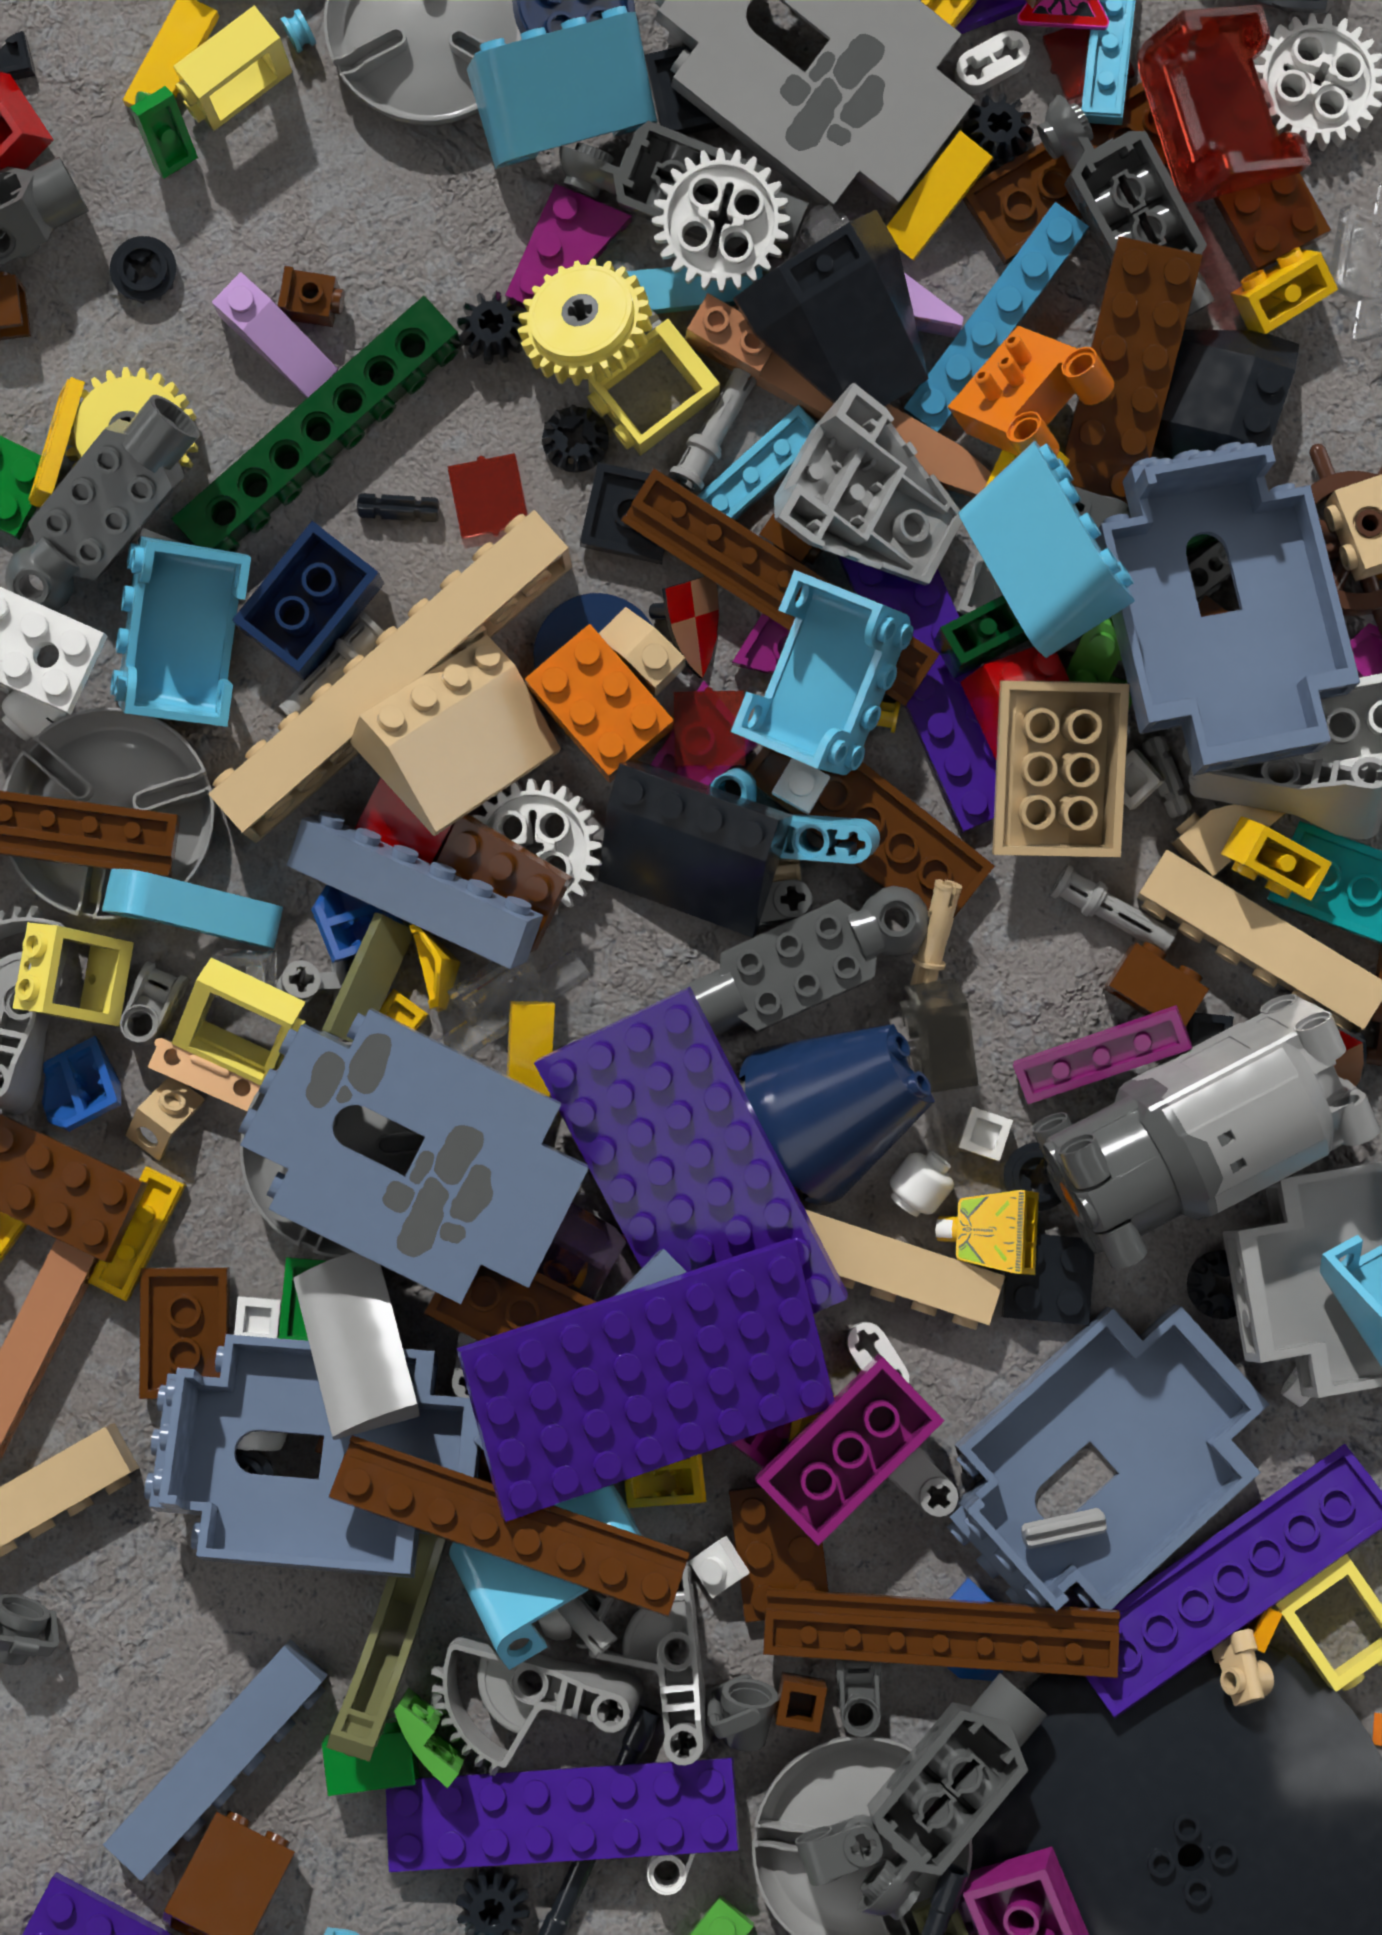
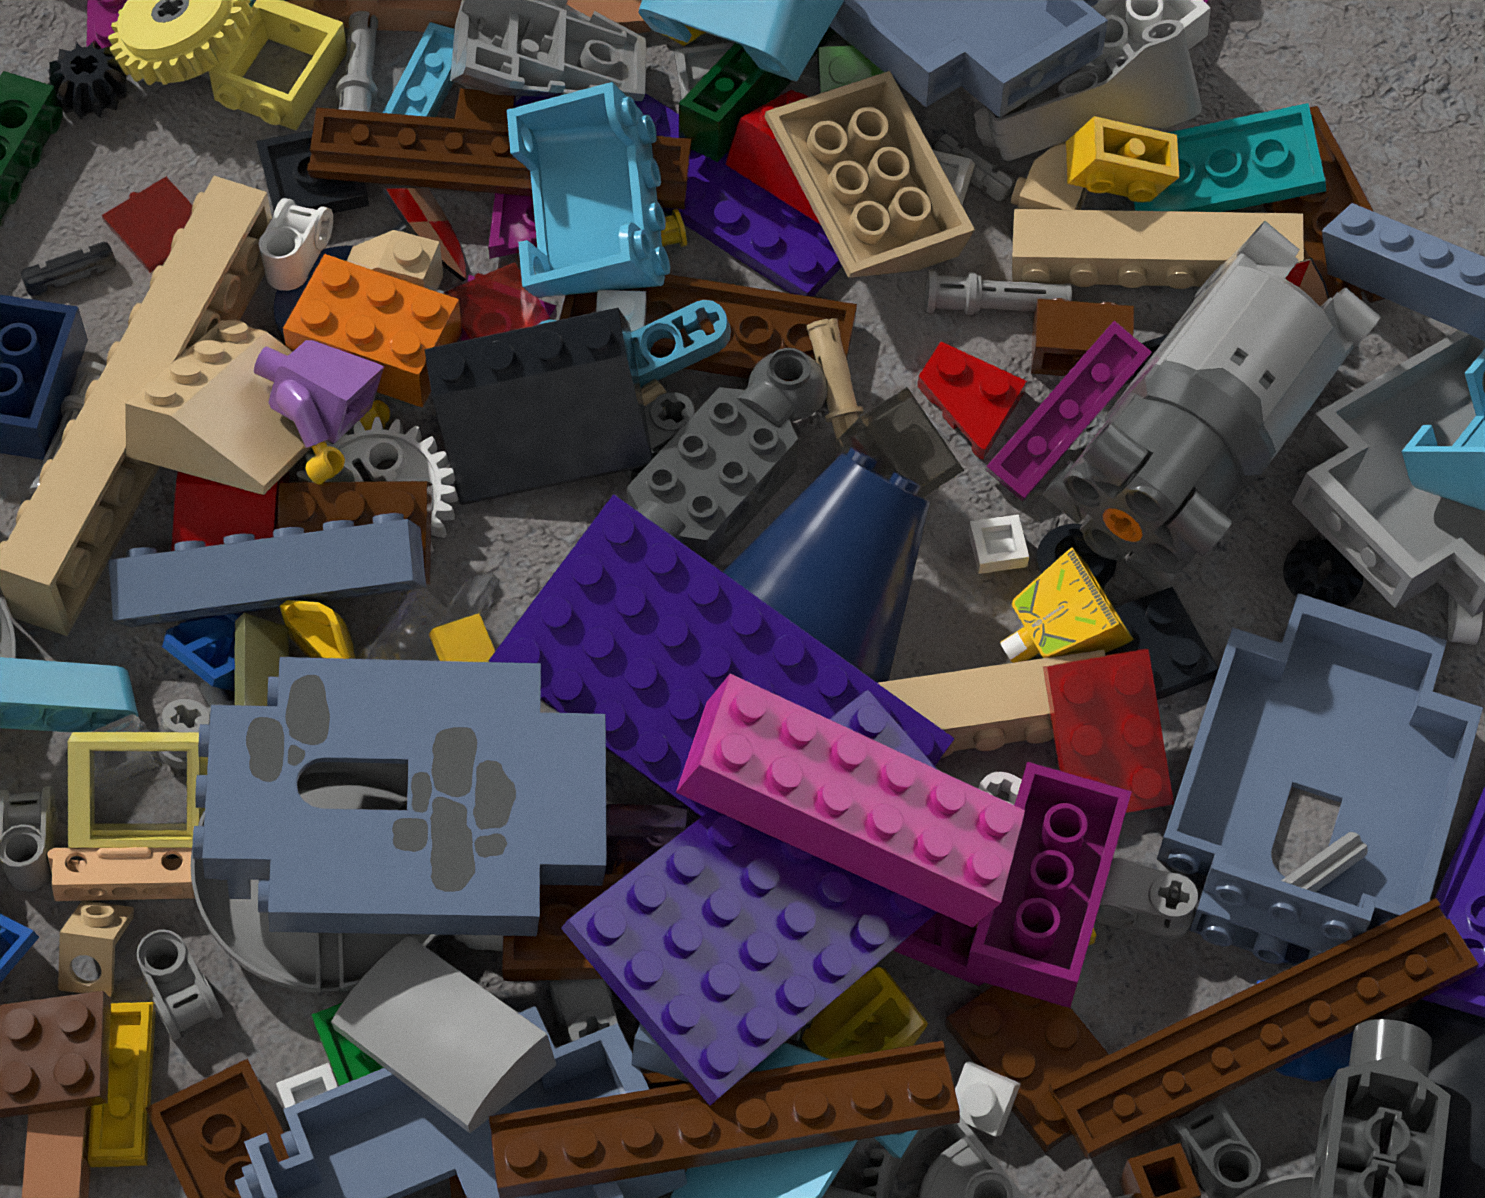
camera: 30 degrees left, 25 degrees down
(203, 1186) = (179, 991): none -> light grey piece
(522, 762) = (324, 396): none -> medium lavender torso
(582, 456) = (238, 146): black gear -> none
(584, 575) = (293, 243): none -> white piece
(721, 1345) = (851, 801): none -> dark pink brick
(921, 1183) = (963, 615): white head -> none
(968, 1344) = (1111, 725): none -> red plate
(1042, 987) = (971, 394): none -> red wing

